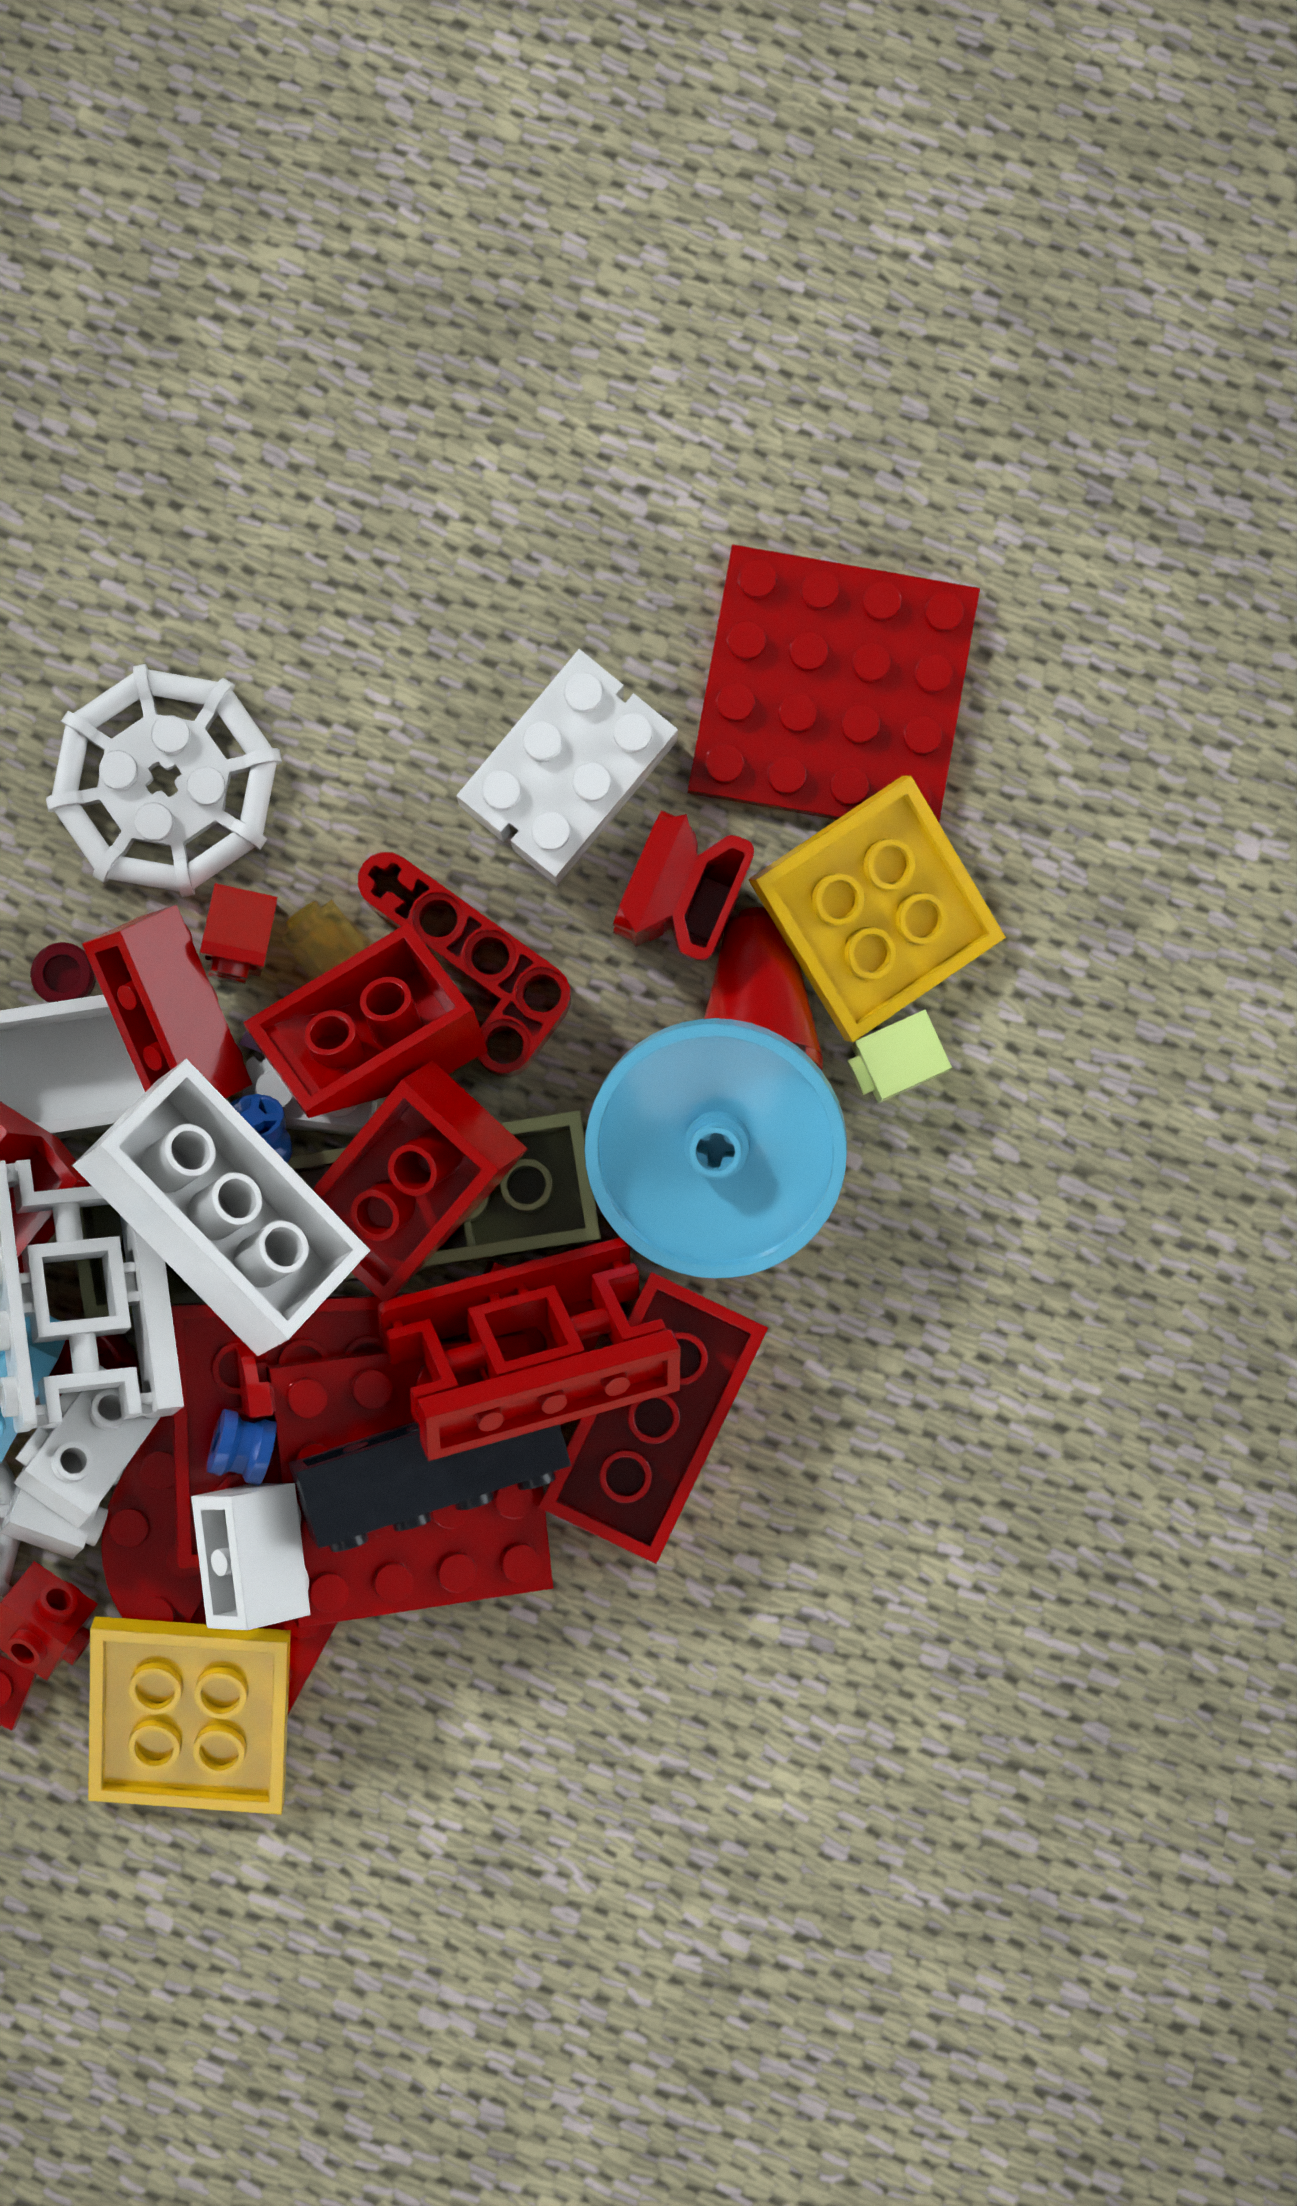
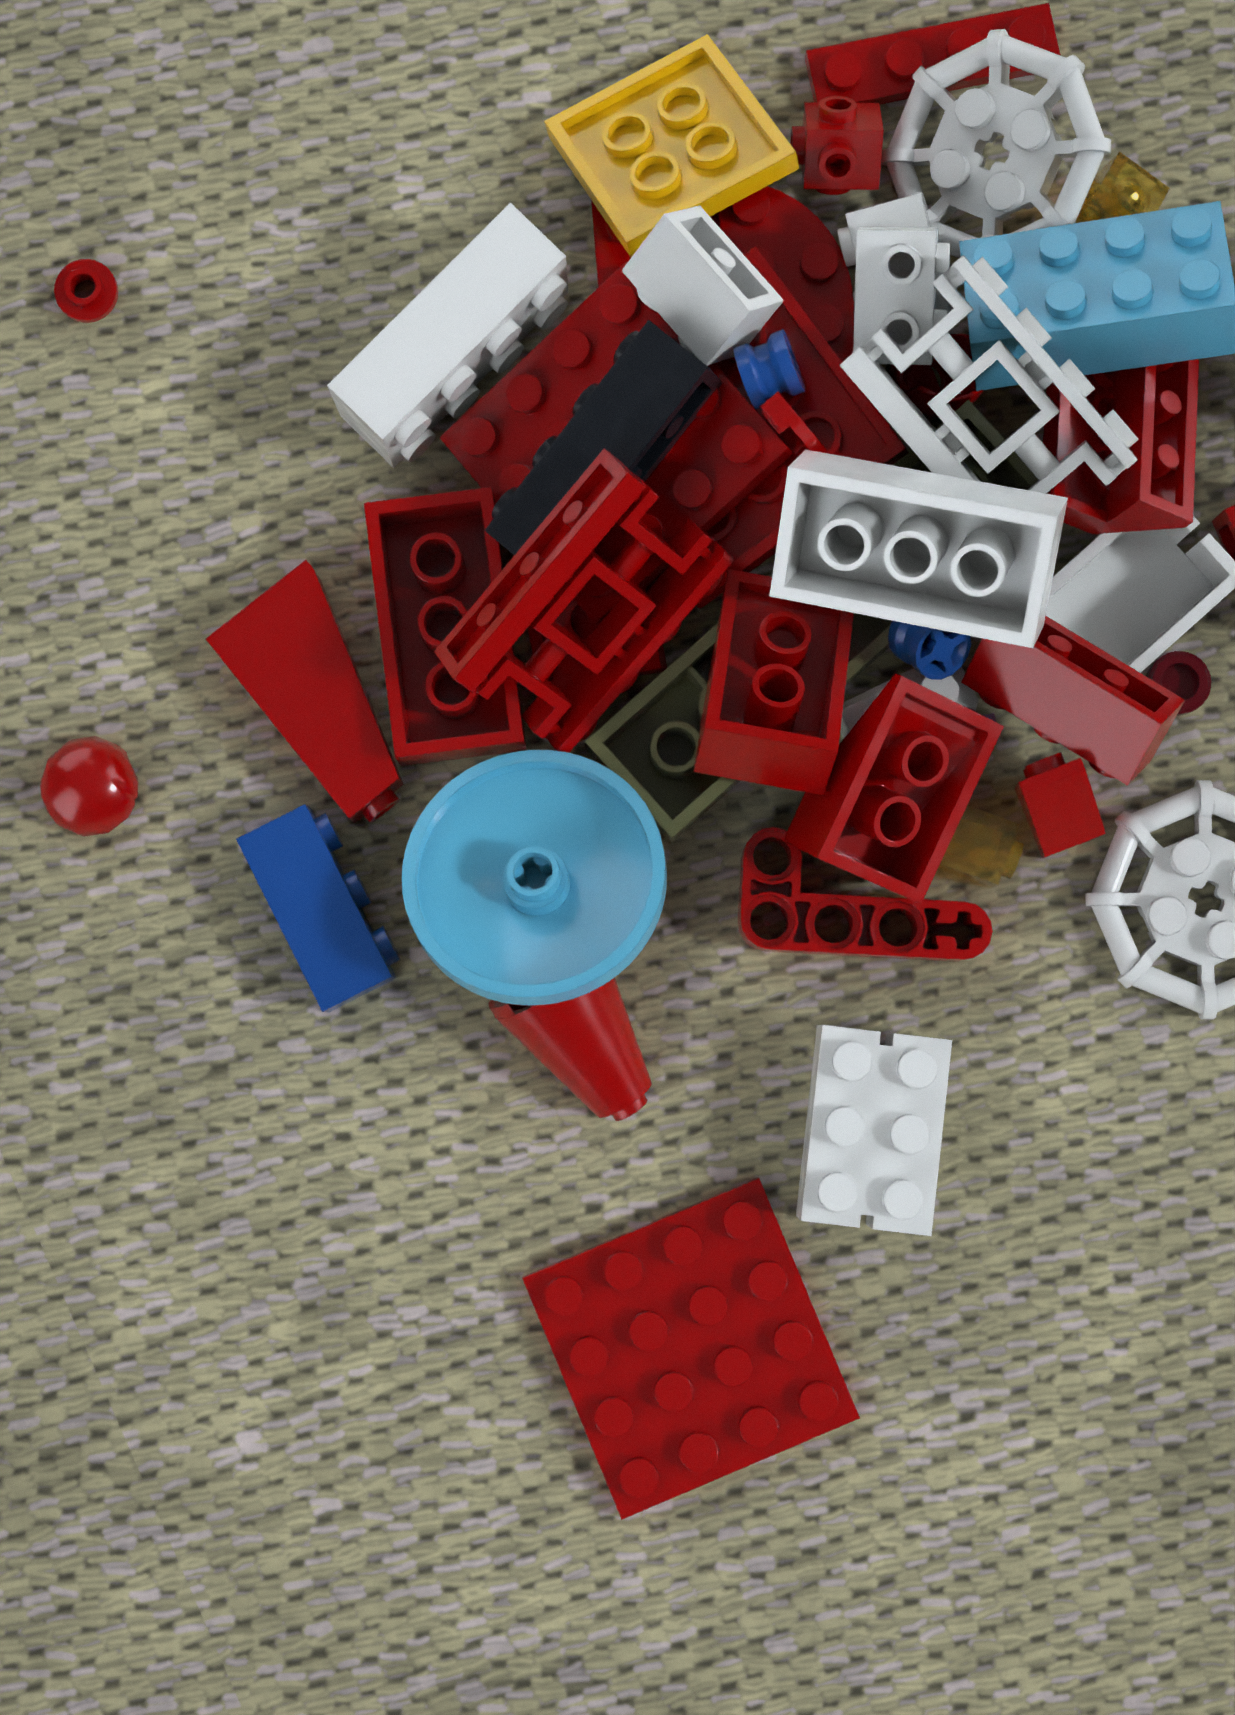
camera: 150 degrees right, 0 degrees up
(487, 1664) = (453, 337): none -> white brick
(683, 889) = (706, 1084): red piece -> none
(772, 1902) = (95, 306): none -> red plate
(801, 1449) = (306, 682): none -> red slope
(877, 908) = (531, 1178): yellow plate -> none
(898, 1057) = (432, 1062): yellowish green brick -> none
(911, 1249) = (319, 907): none -> blue brick
(1042, 1483) = (89, 786): none -> red hair

